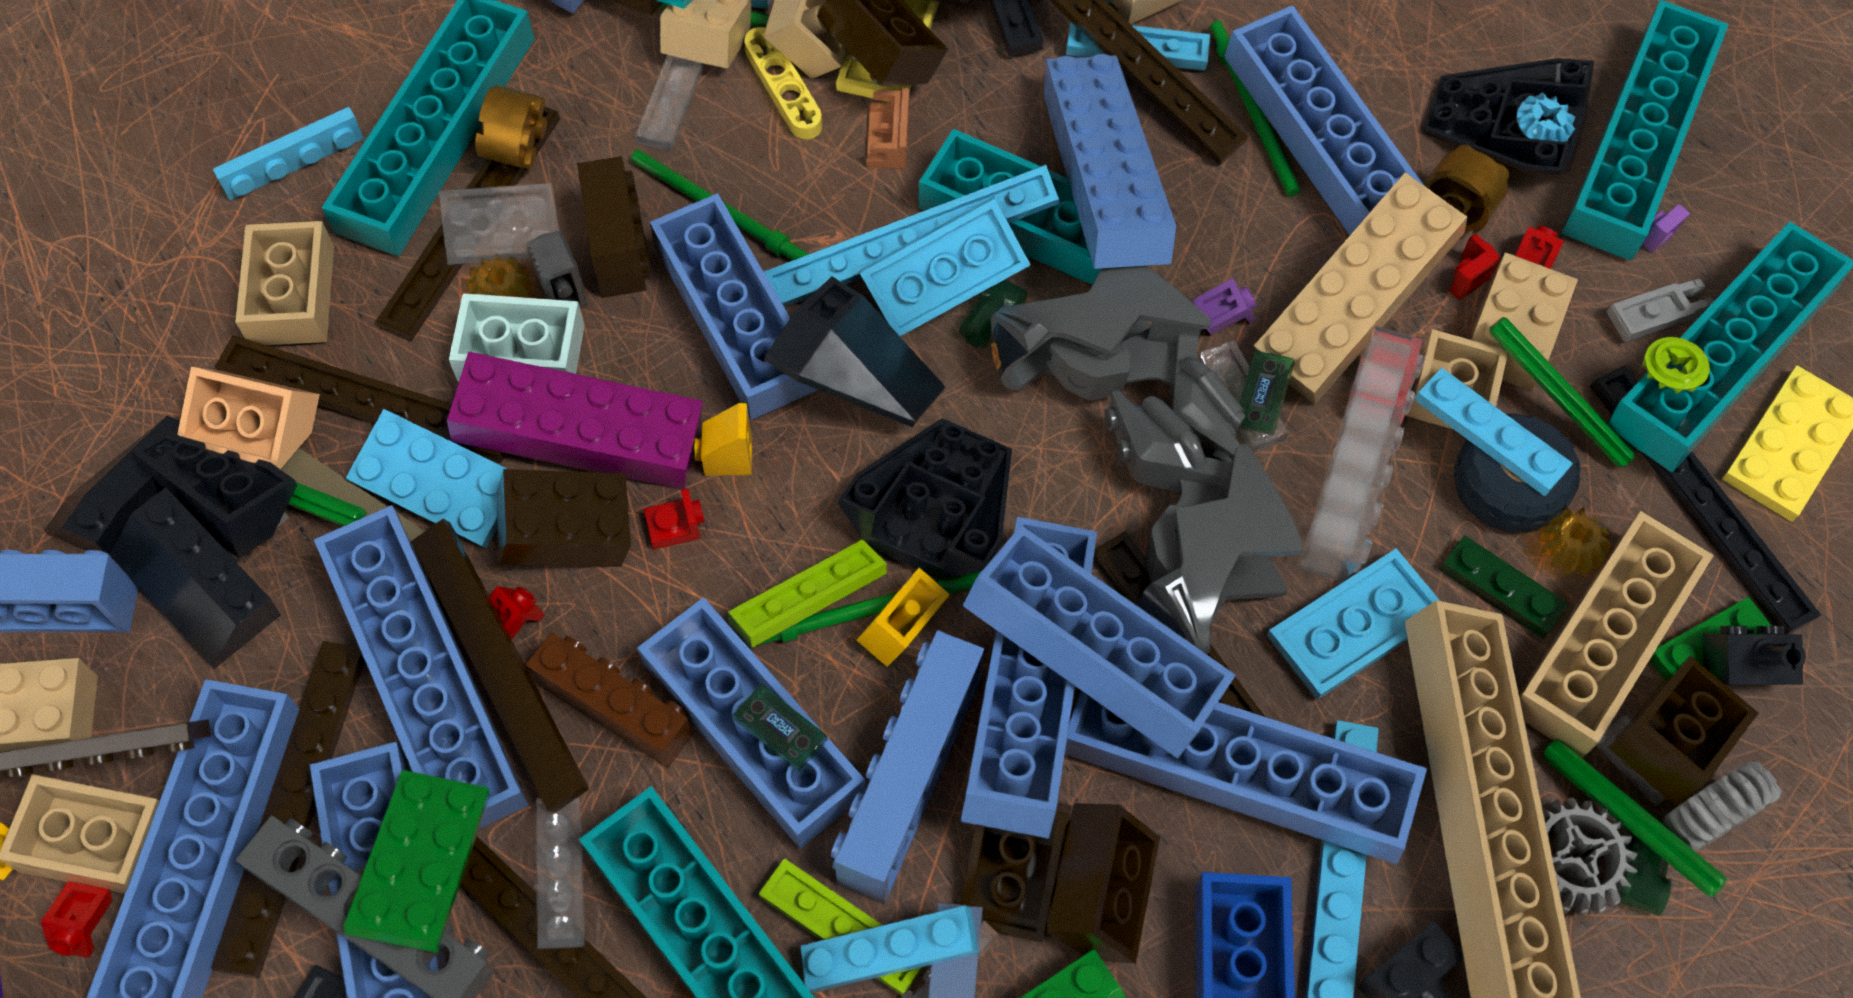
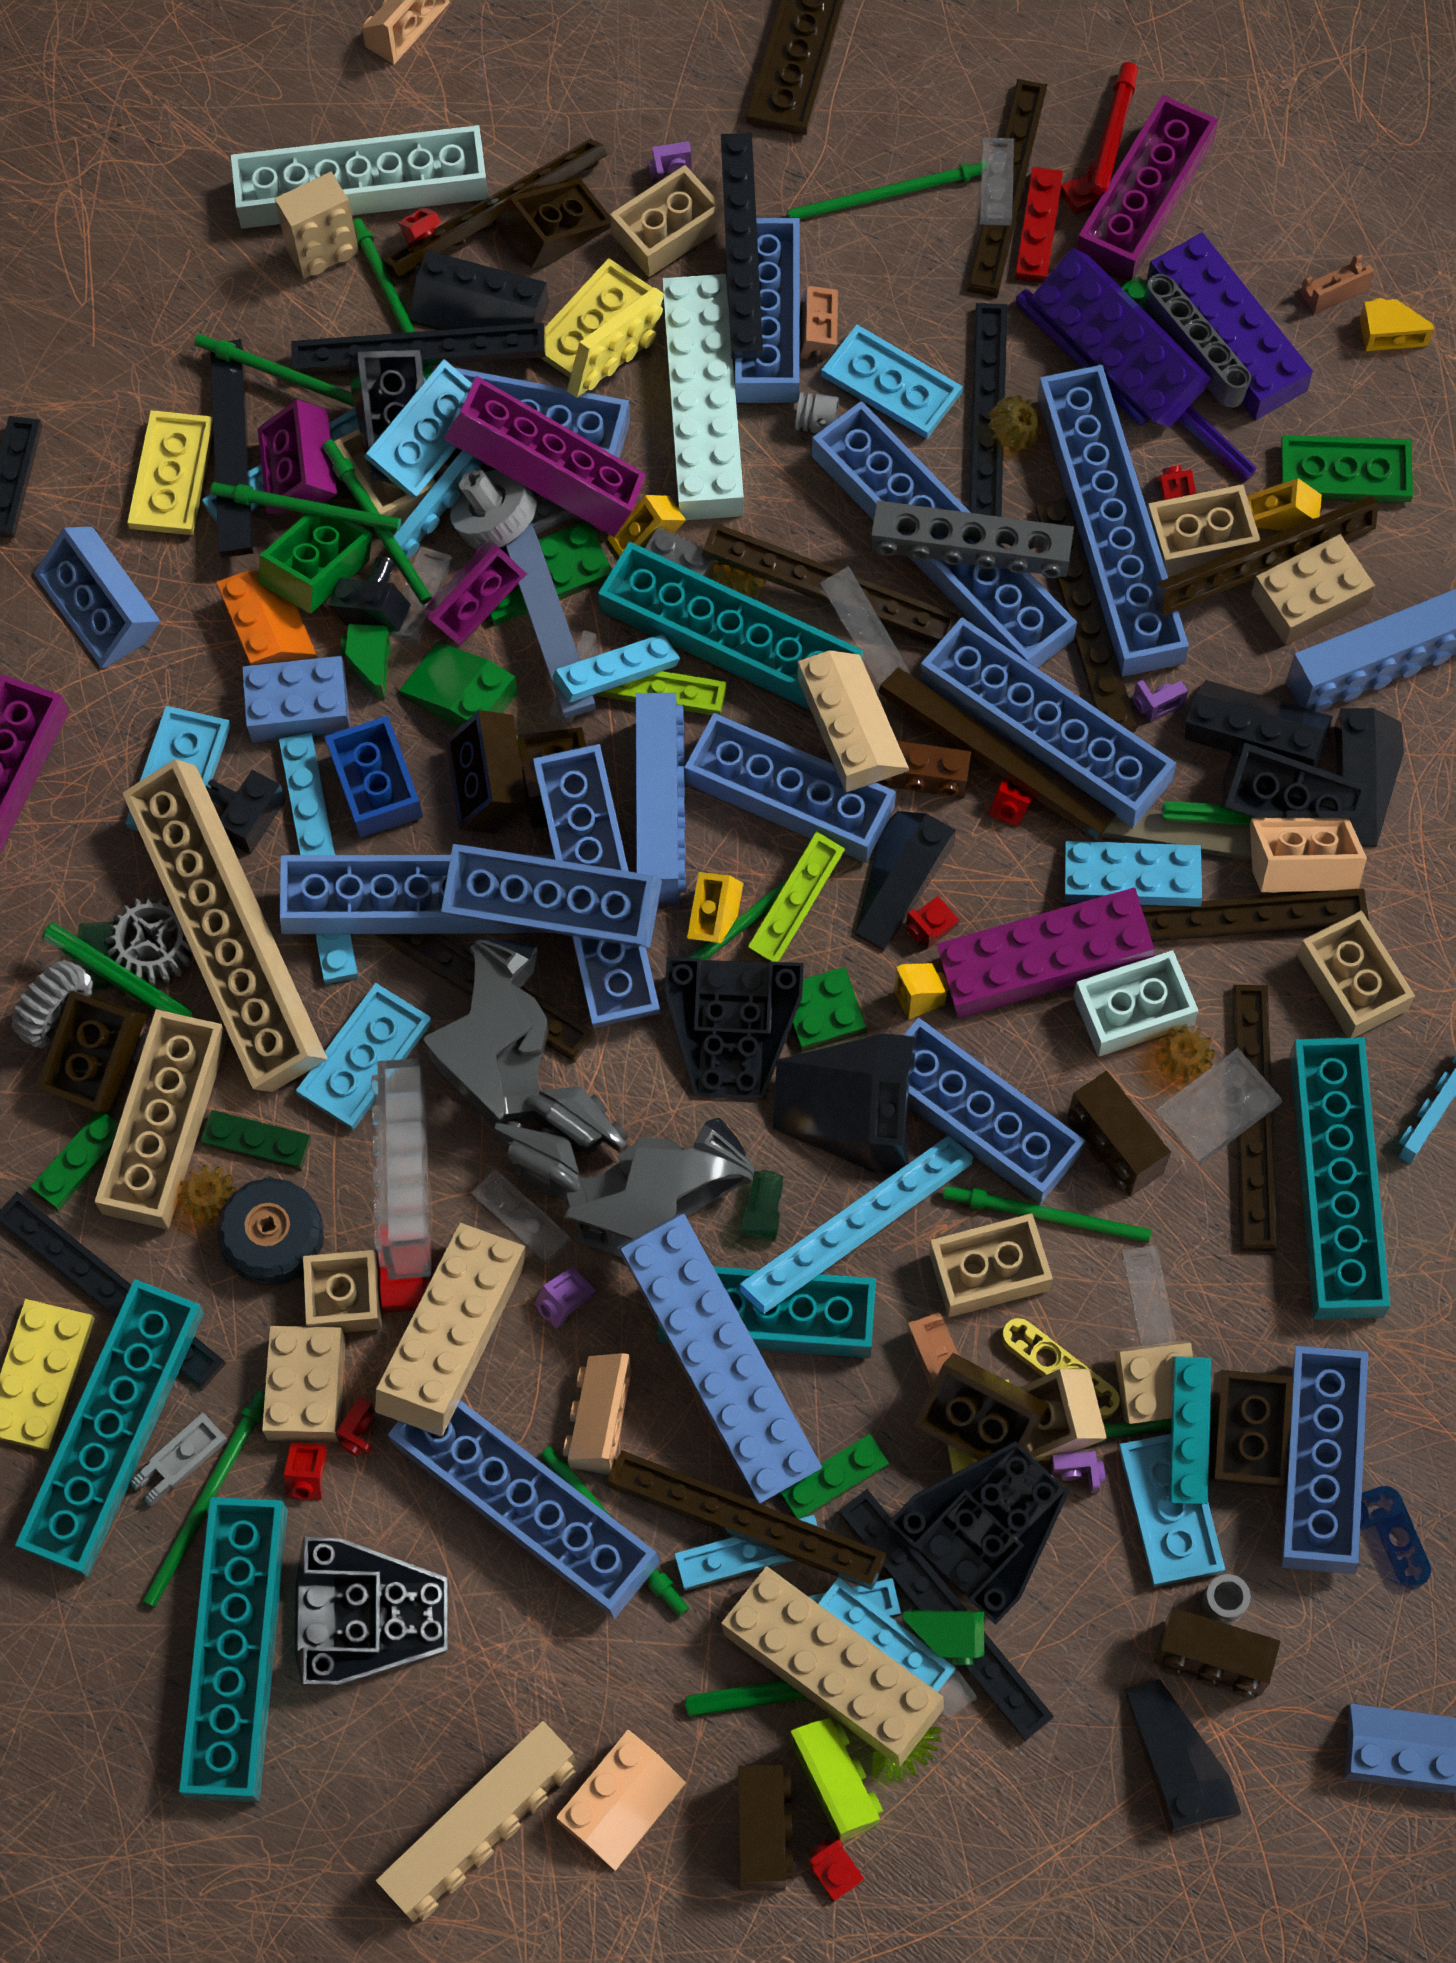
camera: 160 degrees right, 5 degrees up
(272, 653) = (1161, 702): none -> medium lavender bracket
(417, 862) = (954, 577): green plate -> none
(511, 126) = (1259, 1184): pearl gold brick -> none
(556, 268) = (1139, 1071): flat silver brick -> none
(562, 518) = (1009, 871): dark brown brick -> none
(642, 743) = (850, 719): none -> tan slope
(669, 581) = (902, 868): none -> black wedge
(780, 727) = (760, 772): clear green tile -> none
(800, 169) = (990, 1265): none -> tan brick
(824, 475) = (827, 1010): none -> green plate
(945, 267) = (814, 1203): medium azure plate -> none
(1014, 78) = (835, 1477): none -> green plate
(1233, 185) = (598, 1413): none -> light nougat slope
(1265, 391) = (501, 1203): clear green tile -> none
(1470, 184) = (388, 1493): pearl gold brick -> none
(1493, 431) = (300, 1233): medium azure plate -> none
(1531, 111) = (348, 1599): medium azure gear -> none
(1561, 392) = (256, 1312): green axle -> none
(1579, 323) = (250, 1416): none -> green bar
(1664, 227) = (192, 1546): medium lavender plate -> none
(1677, 352) = (159, 1334): lime gear -> none
(1754, 658) = (44, 1138): black brick -> none

